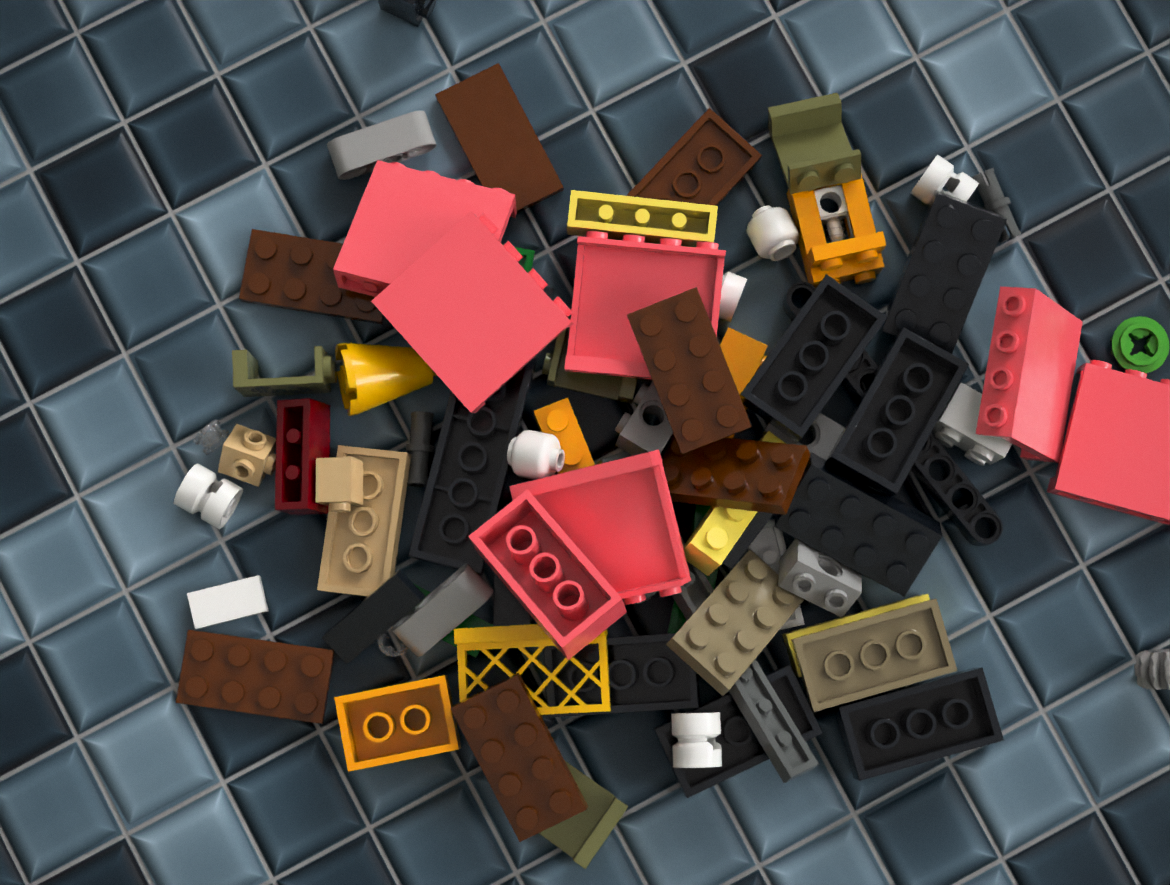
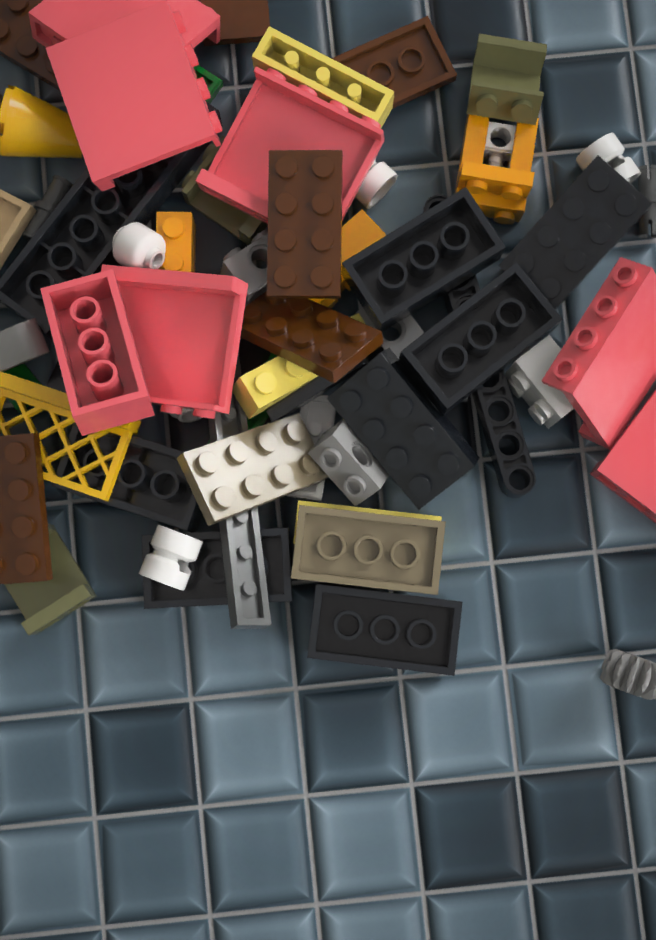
camera: 25 degrees right, 0 degrees up
(773, 233) = (438, 146): white head -> none

